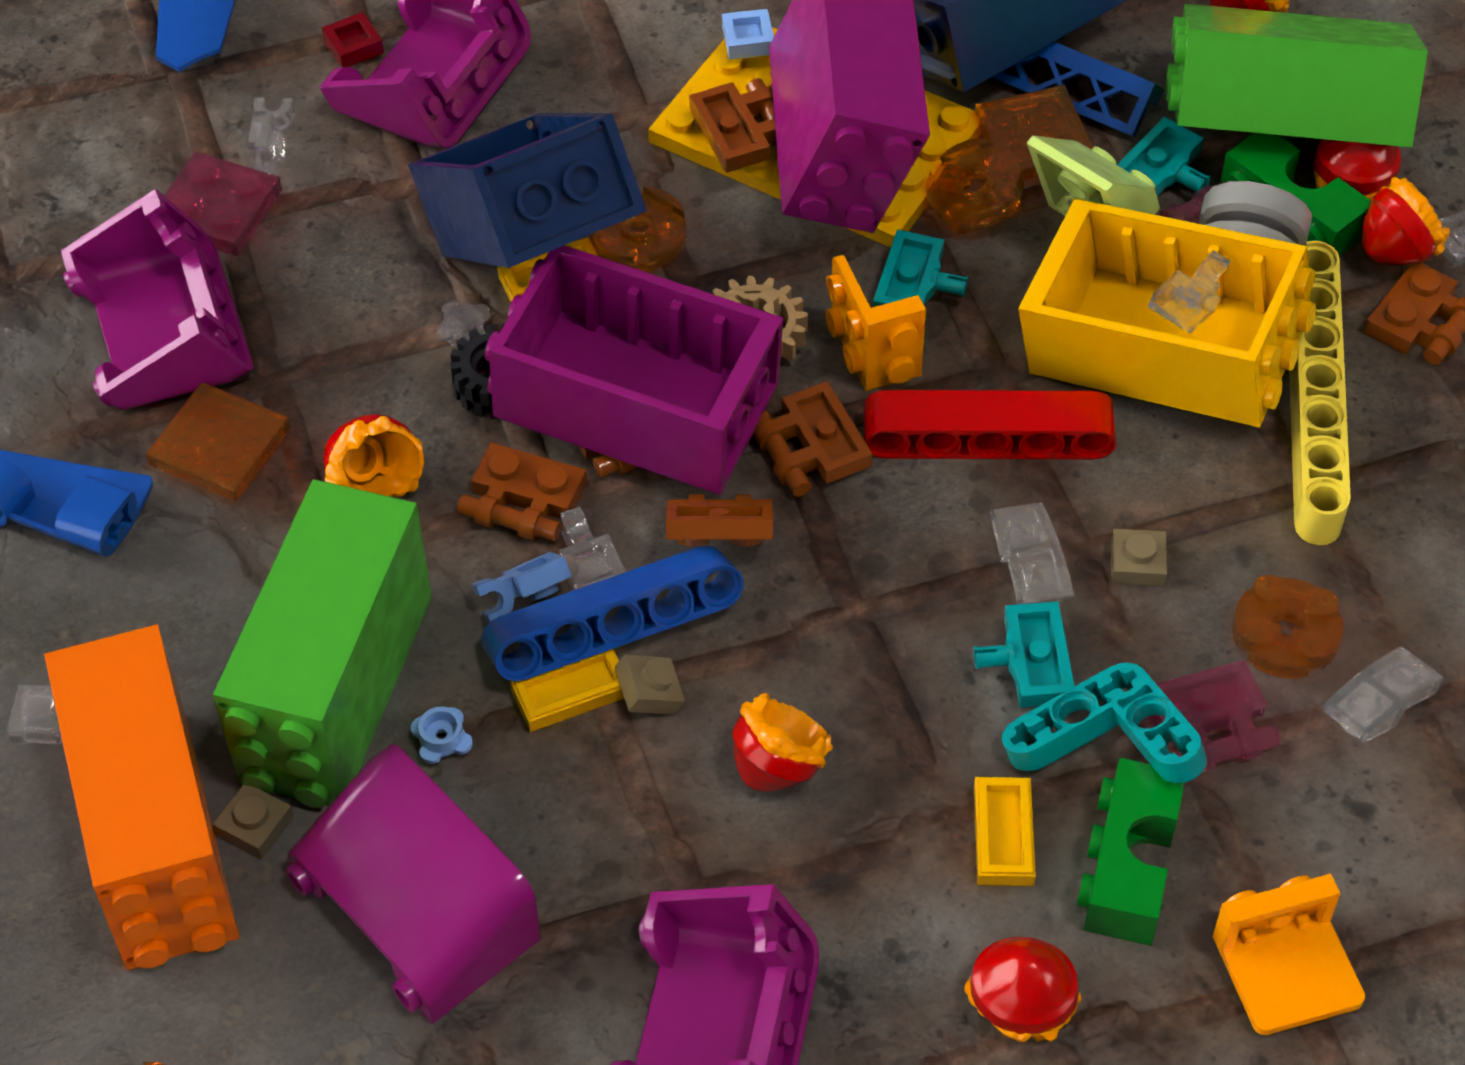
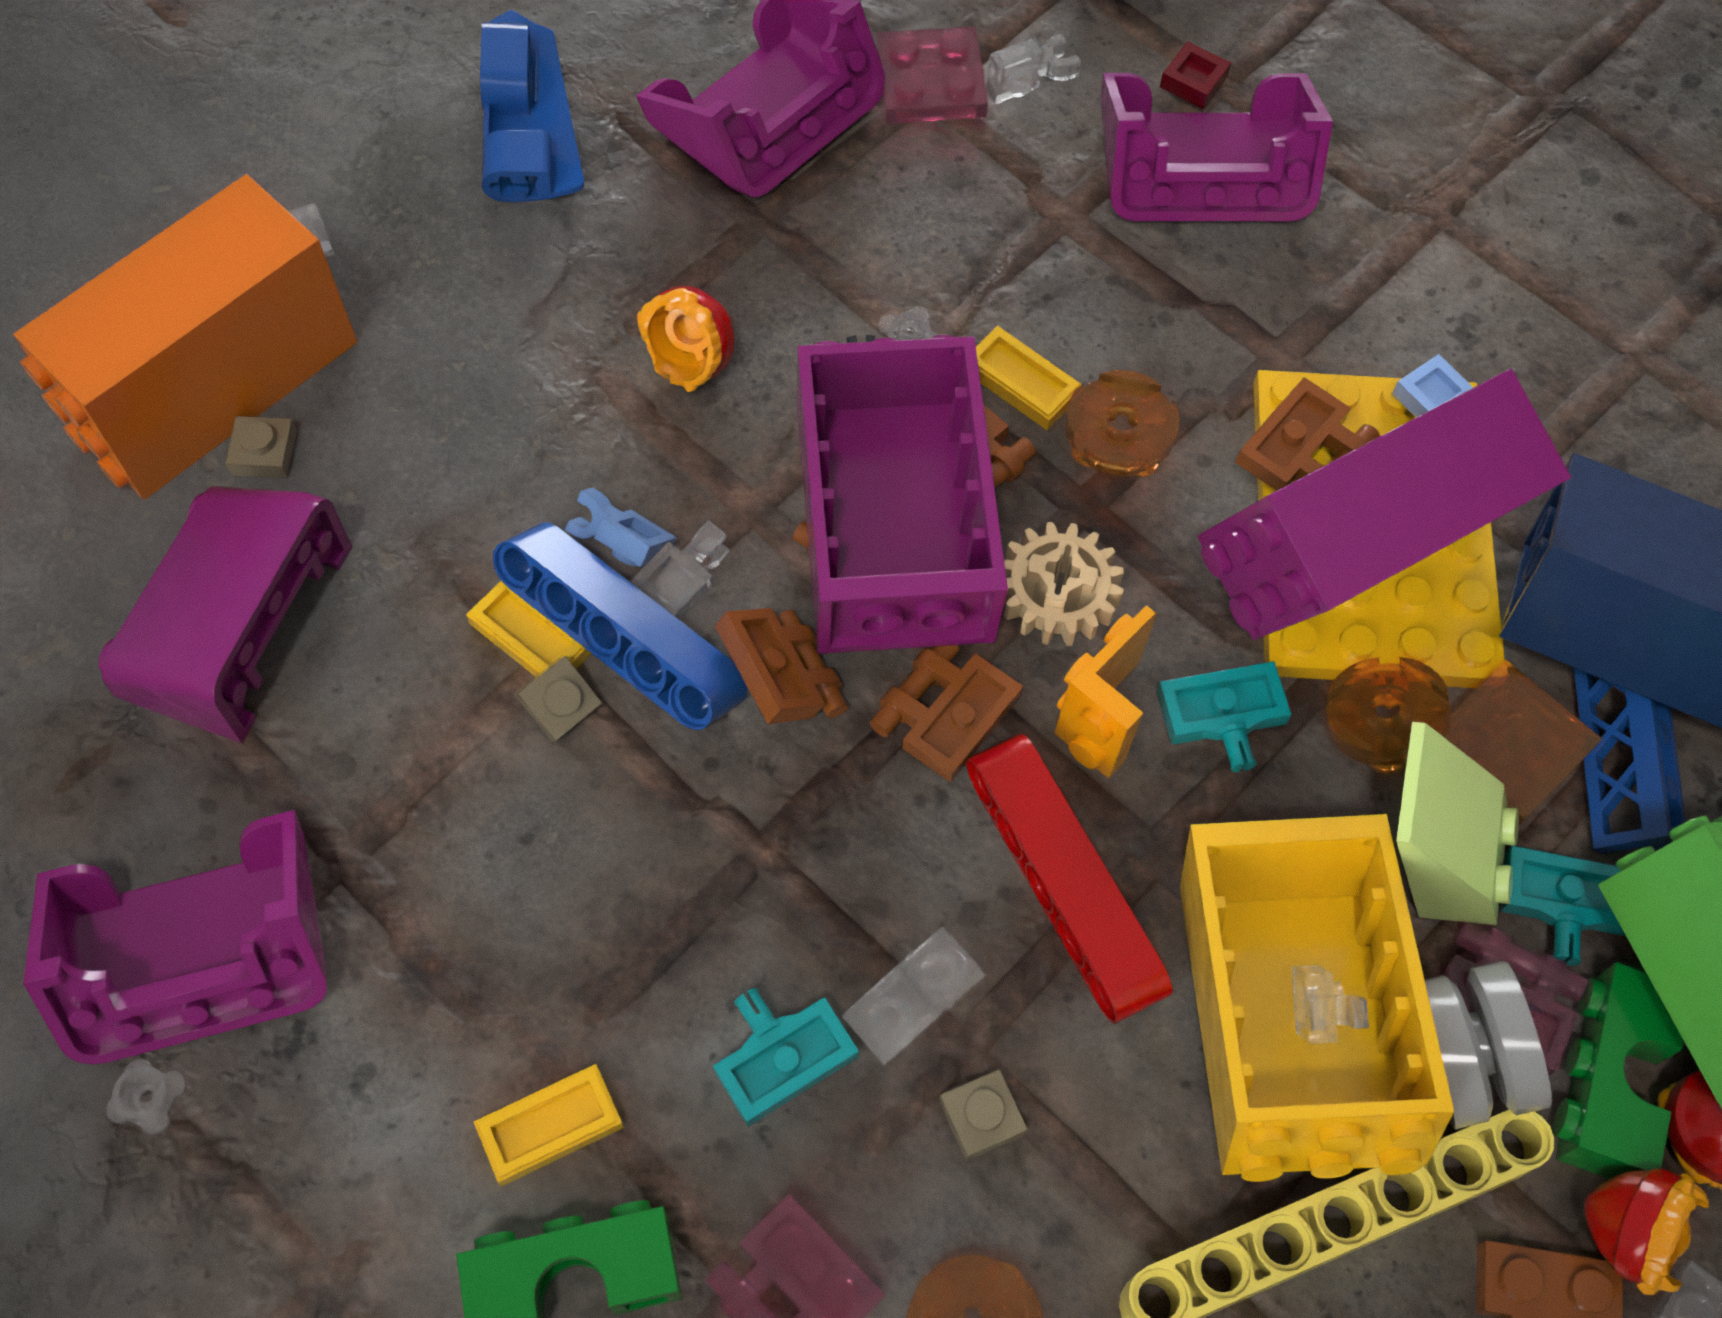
camera: 60 degrees right, 10 degrees up
(218, 441) = (652, 211): clear orange tile -> none
(324, 643) = (419, 393): bright green container -> none
(438, 721) = (413, 536): light blue plate -> none
(527, 482) = (753, 481): dark orange plate -> none
(528, 188) = (1033, 281): dark blue container -> none
(777, 745) = (532, 848): hair -> none
(1024, 988) = (344, 1231): red hair -> none
(1119, 709) = (731, 1187): teal beam -> none

